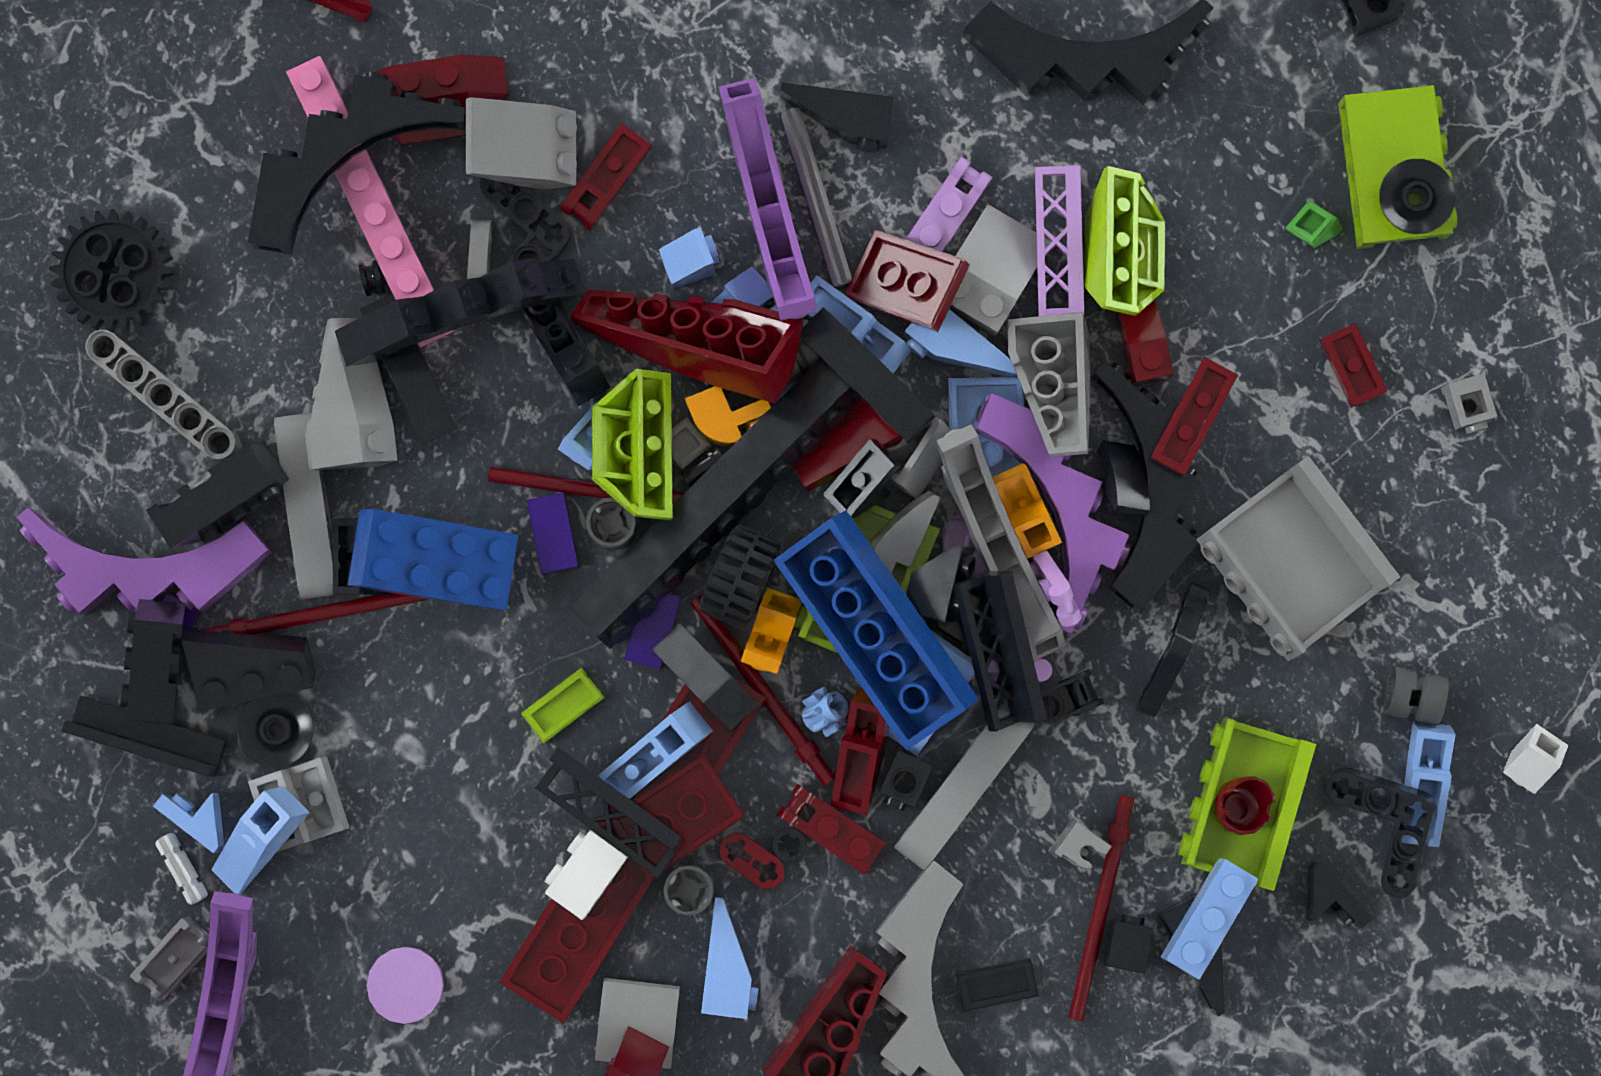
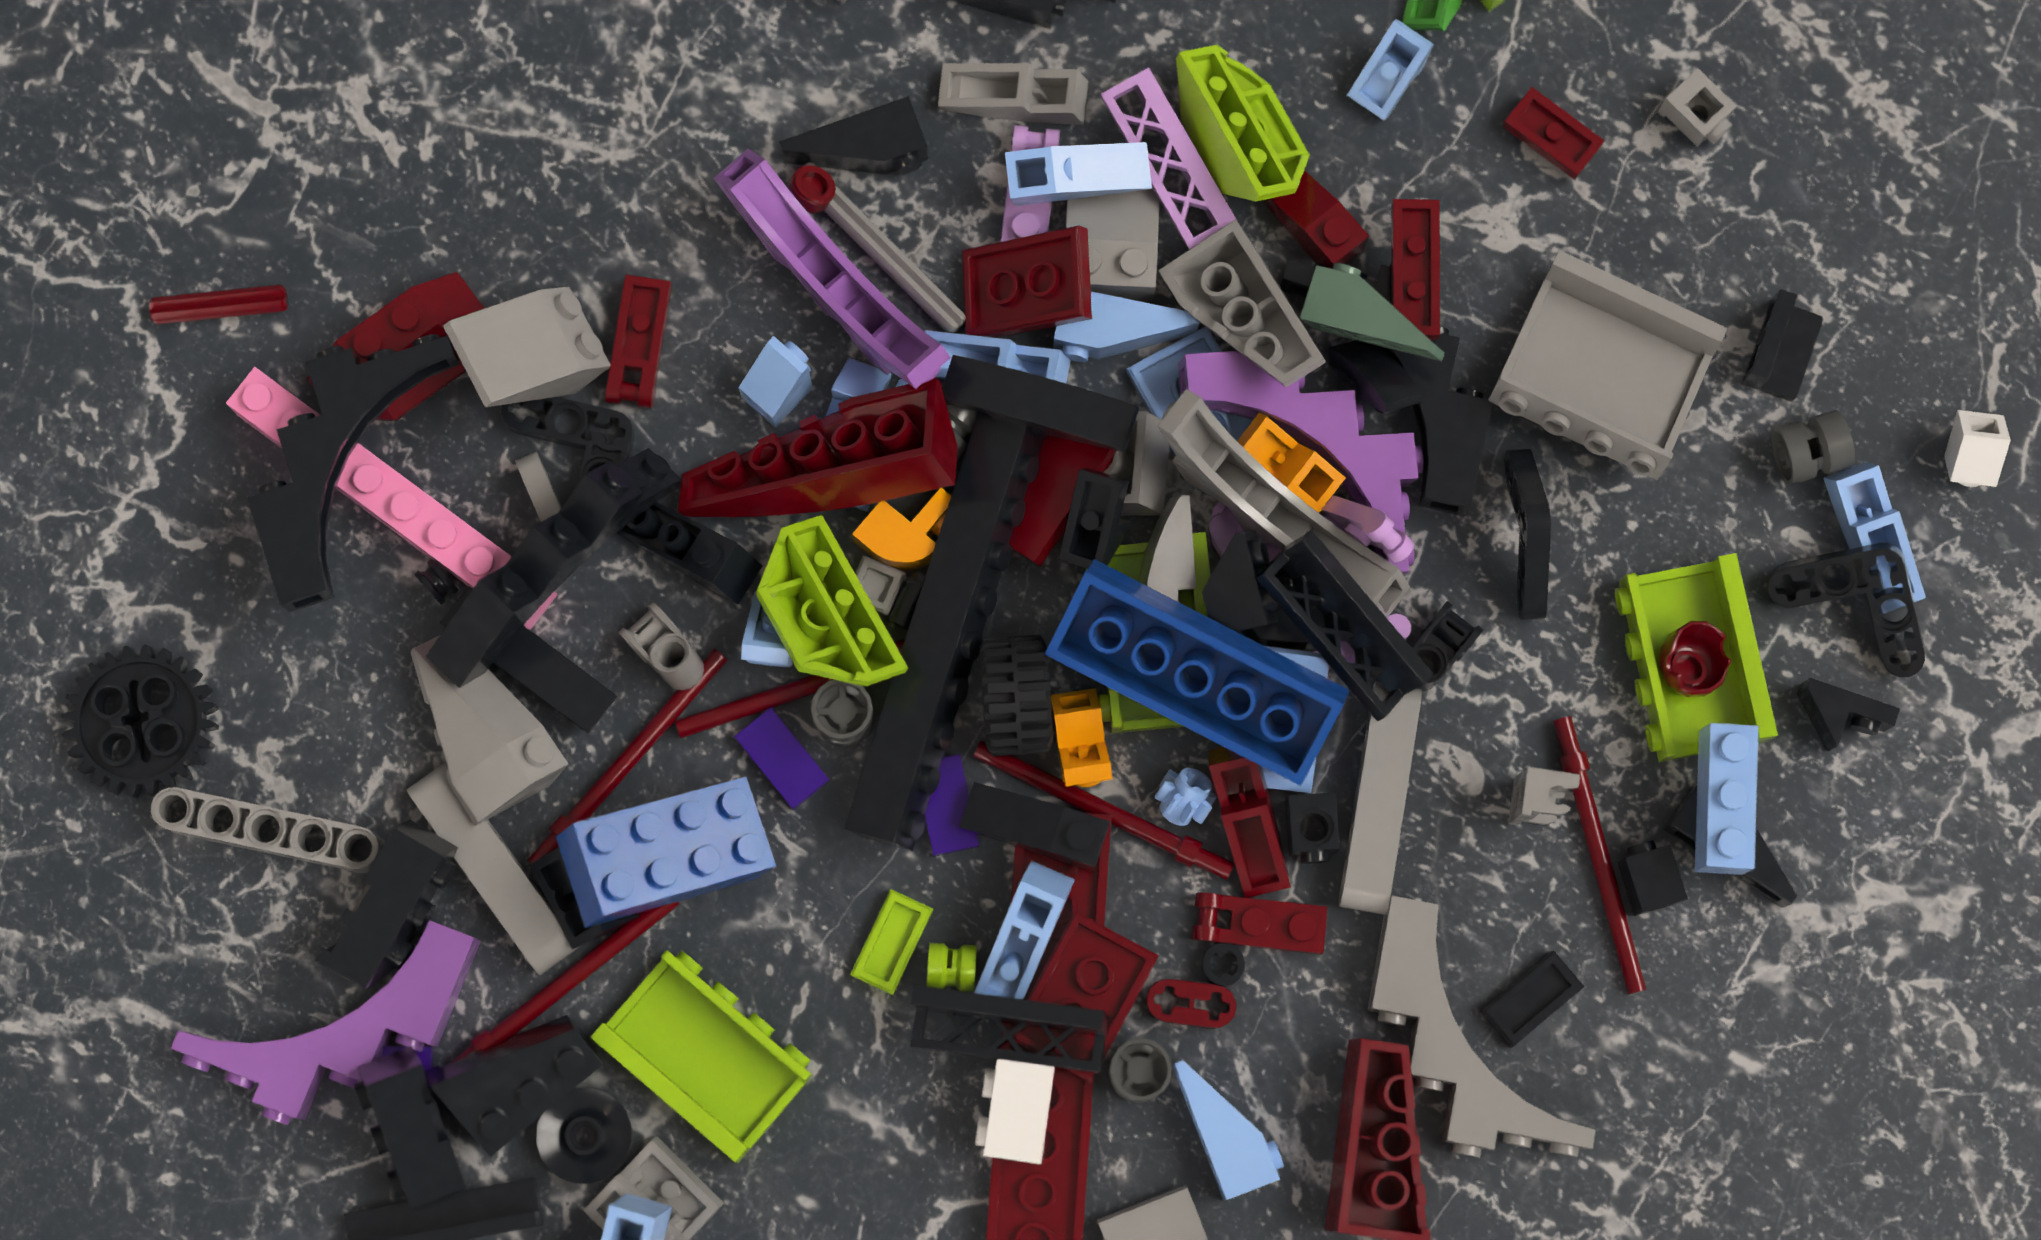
camera: 25 degrees left, 5 degrees down
(388, 716) = (704, 1055): none -> lime panel
(446, 475) = (630, 756): none -> dark red bar
(508, 405) = (659, 644): none -> light grey piece
(603, 750) = (962, 963): none -> lime wheel
(787, 129) = (812, 188): none -> dark red tile
(973, 132) = (1014, 92): none -> light grey slope
(985, 217) = (1076, 172): none -> light blue slope
(1135, 426) = (1352, 308): none -> sand green slope
(1257, 258) = (1391, 69): none -> light blue slope
(1436, 611) = (1783, 348): none -> black panel

